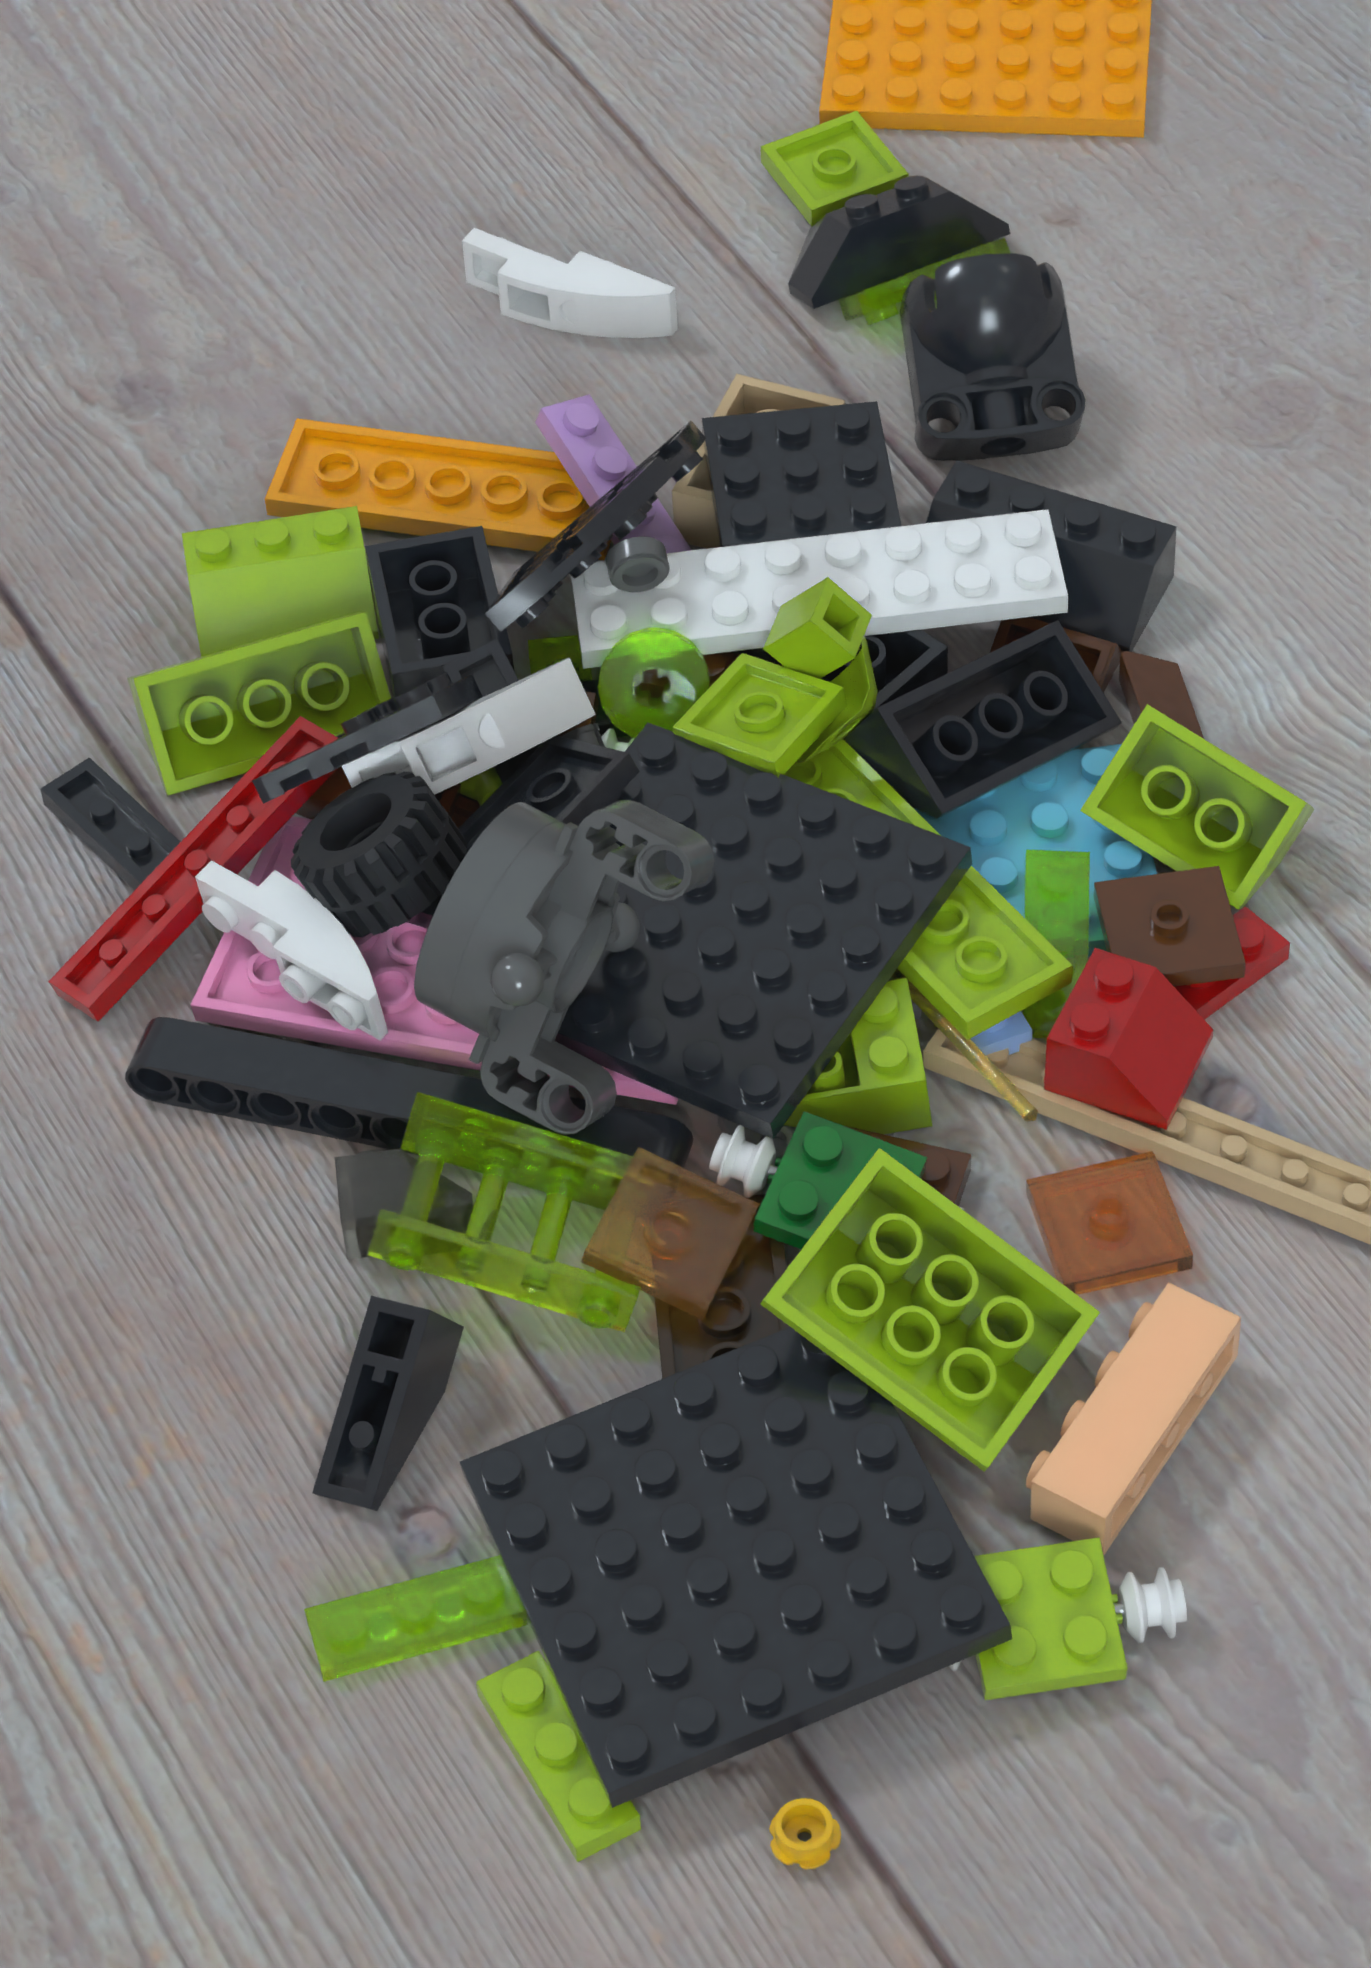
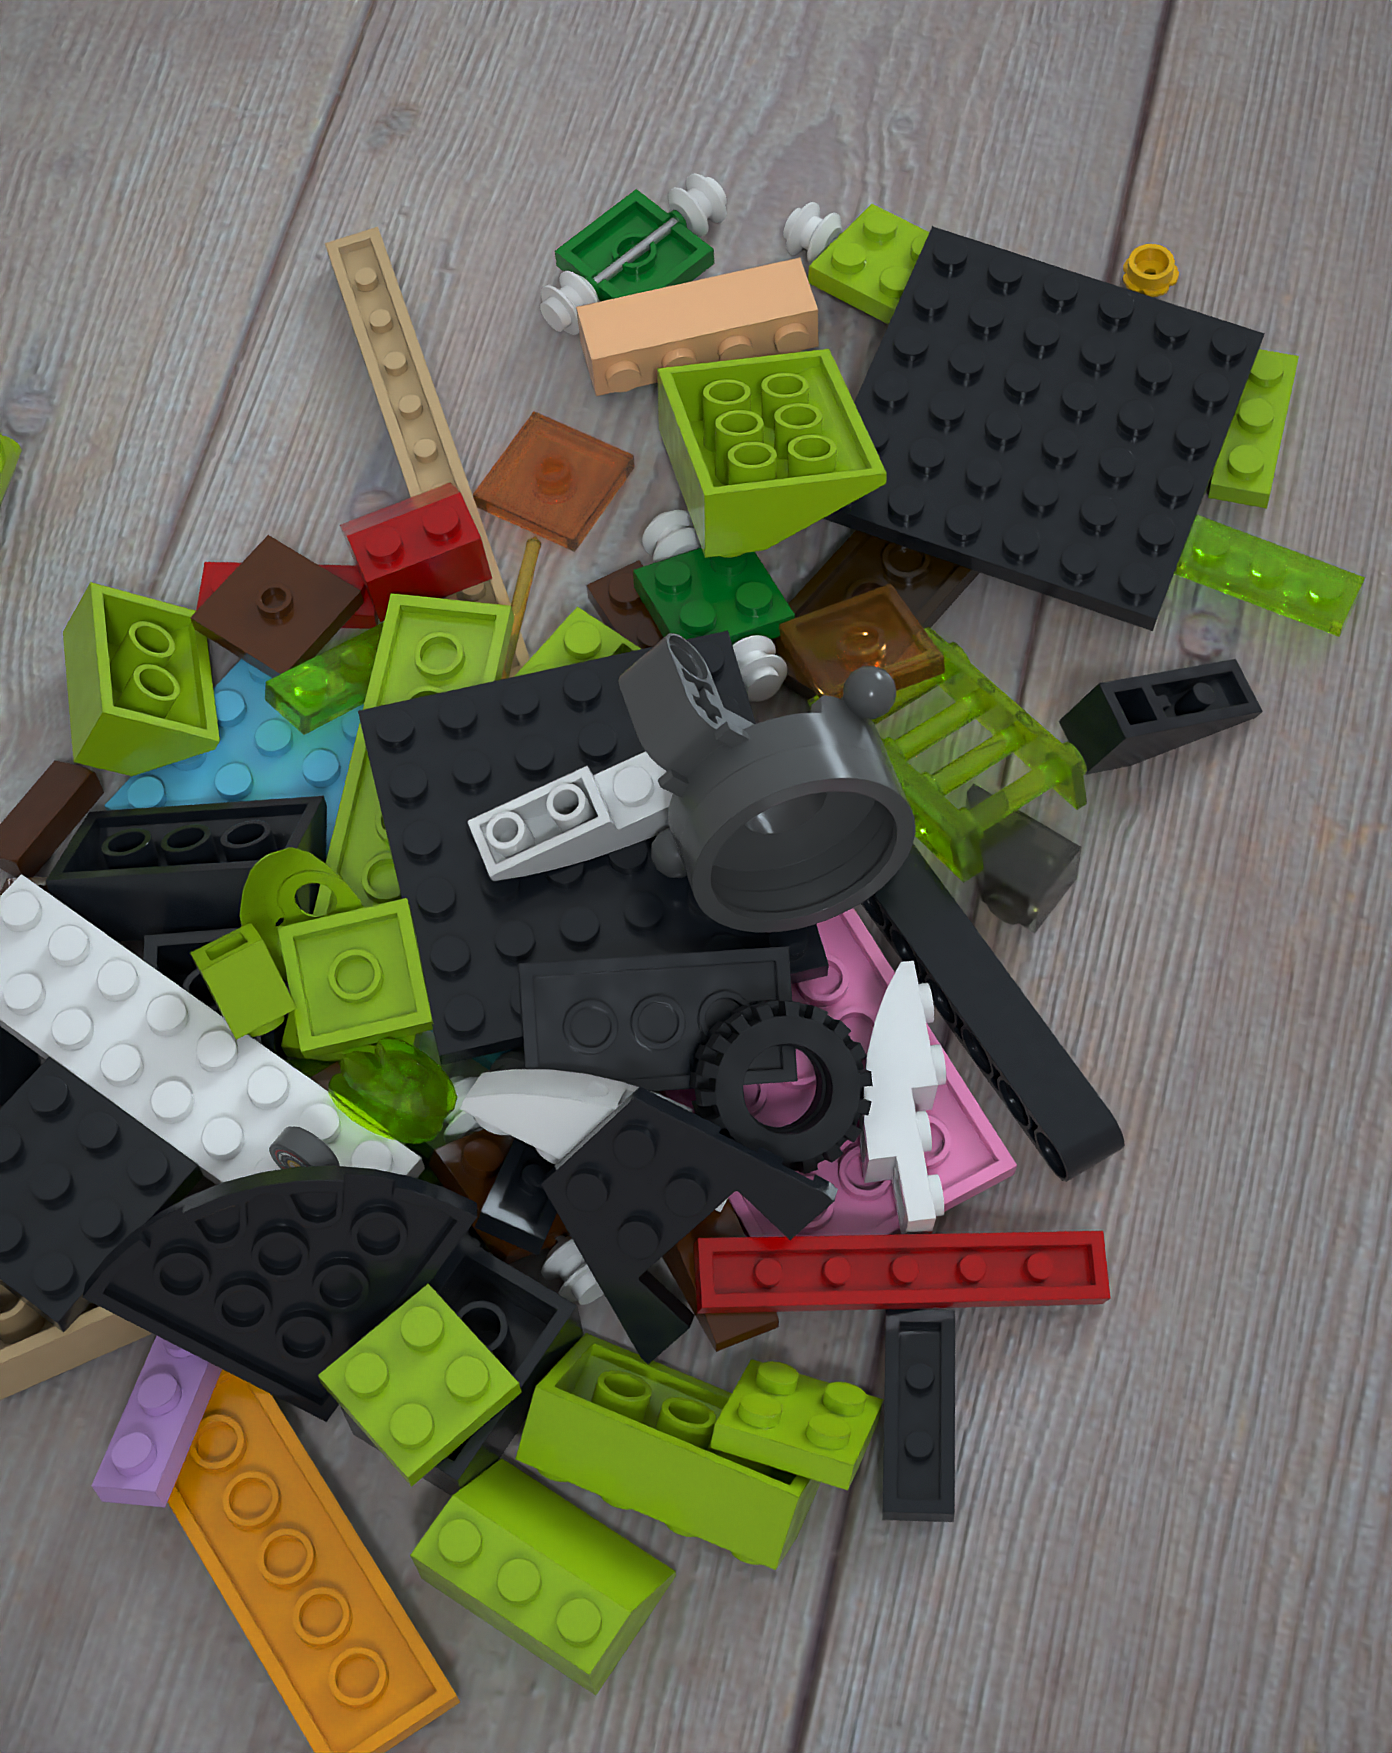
camera: 135 degrees left, 10 degrees up
(185, 746) = (798, 1423): none -> lime plate
(440, 559) = (420, 1384): none -> lime plate
(683, 933) = (573, 819): none -> white slope
(1285, 1457) = (635, 250): none -> green plate

